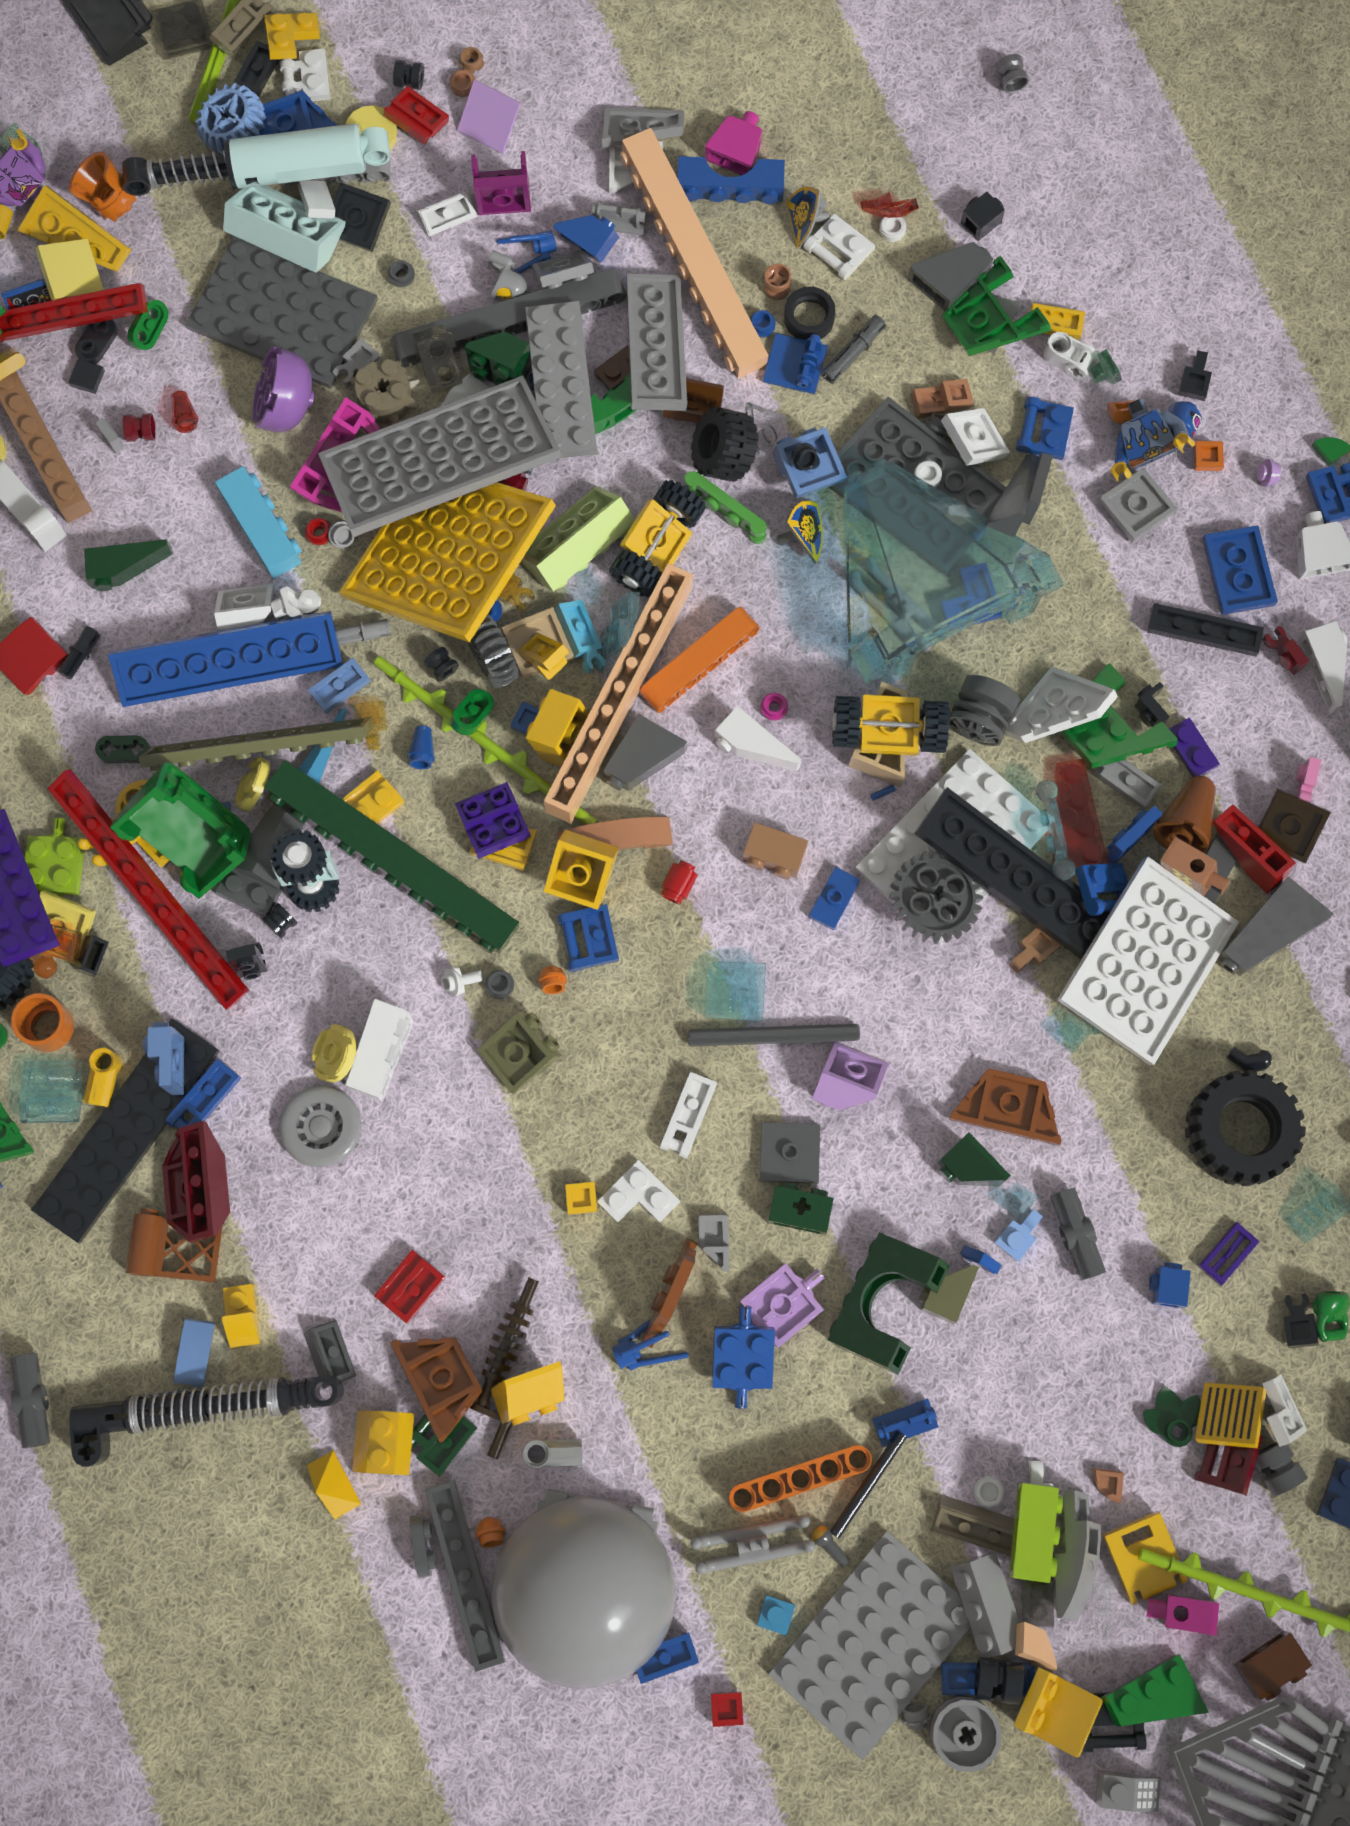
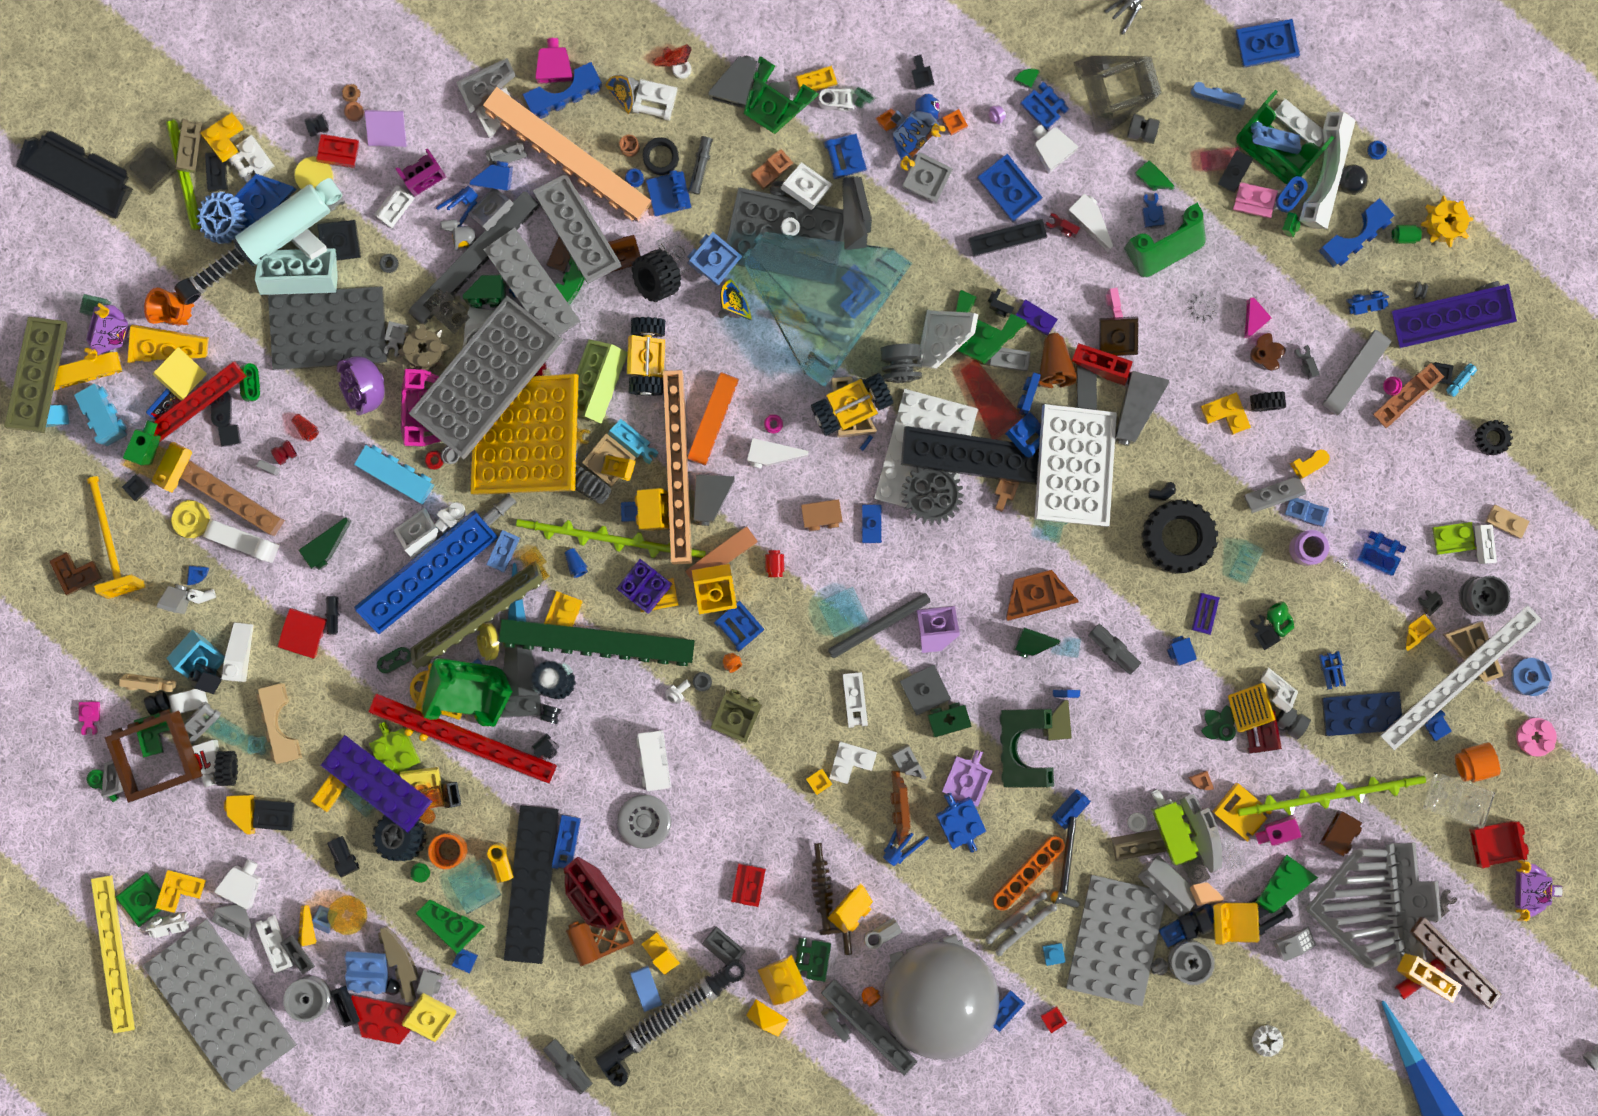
camera: 30 degrees left, 10 degrees up
(166, 1049) = (531, 827): medium blue plate -> none
(334, 1053) = (629, 775): light yellow tile -> none
(440, 1380) = (795, 928): dark orange wing -> none
(441, 664) = (558, 505): black wheel -> none
(468, 715) = (594, 527): green plate -> none
(623, 621) = (656, 423): clear light blue slope -> none
(734, 512) = (684, 313): bright green plate -> none
(804, 456) = (711, 260): black plate -> none
(982, 215) = (734, 32): black brick -> none
(1017, 1238) = (1081, 669): light blue plate -> none
(1063, 866) = (964, 393): clear light blue plate -> none
(1193, 868) = (1068, 395): nougat torso -> none

